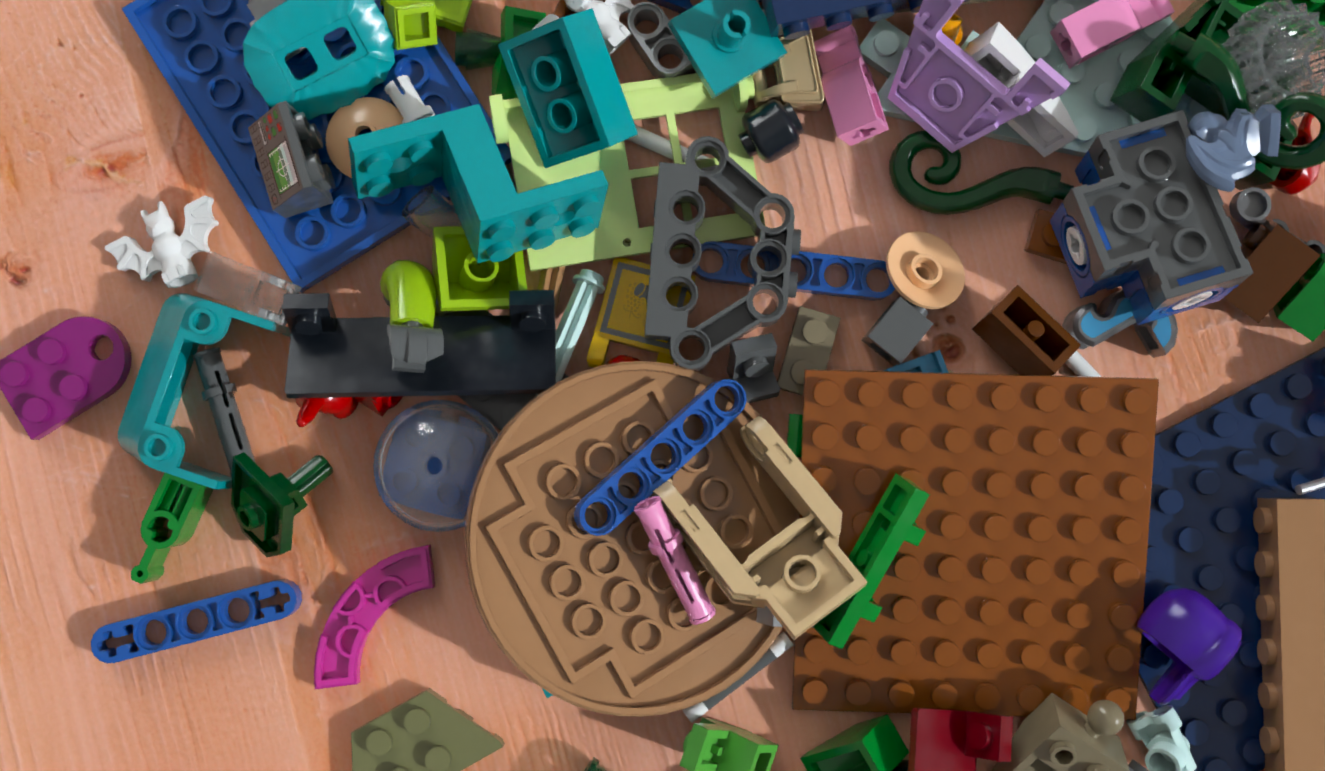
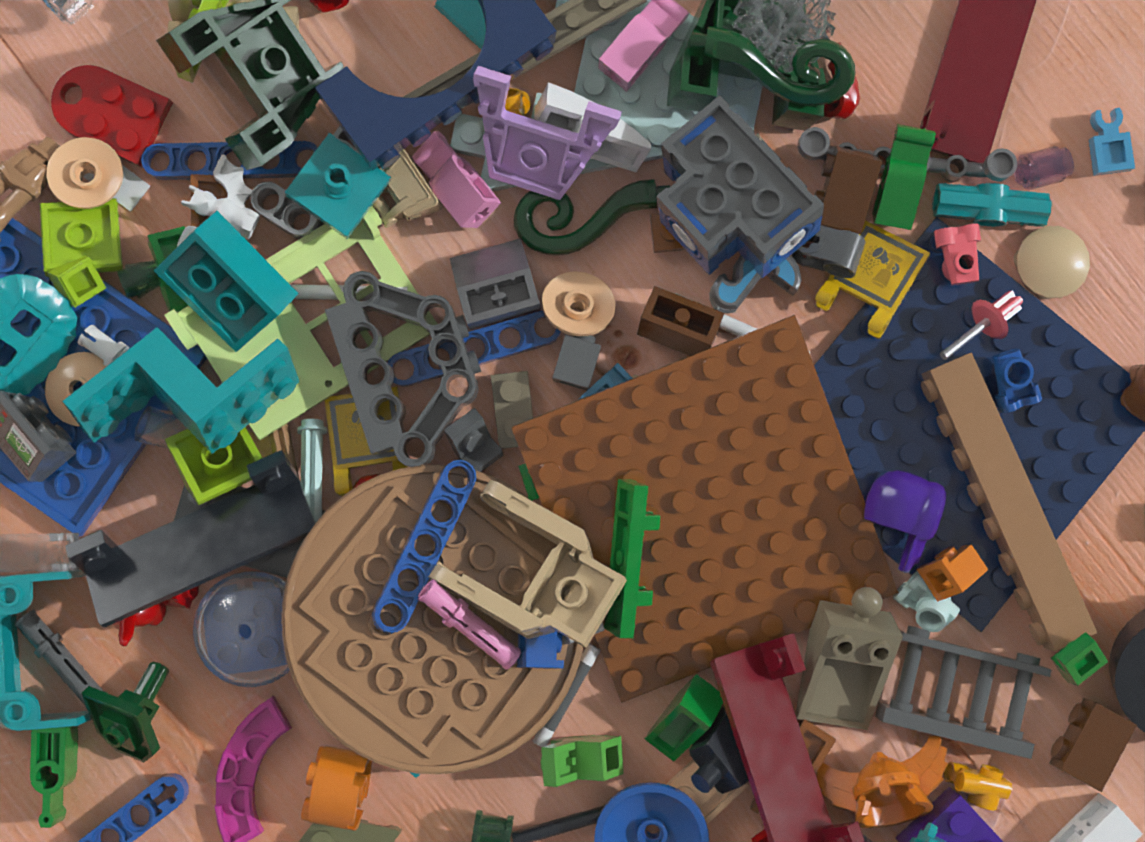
camera: 20 degrees left, 0 degrees up
(412, 302) = (176, 518): piece -> none
(458, 671) = (339, 786): none -> orange brick
(735, 620) = (540, 651): none -> blue brick
(771, 131) = (406, 244): black head -> none
(847, 212) = (494, 284): none -> flat silver slope
(1210, 724) = (952, 571): none -> orange brick
(1219, 330) = (832, 252): none -> dark grey piece
(1225, 149) = (764, 111): sand blue animal -> none
(1255, 369) = (882, 277): none -> yellow flag

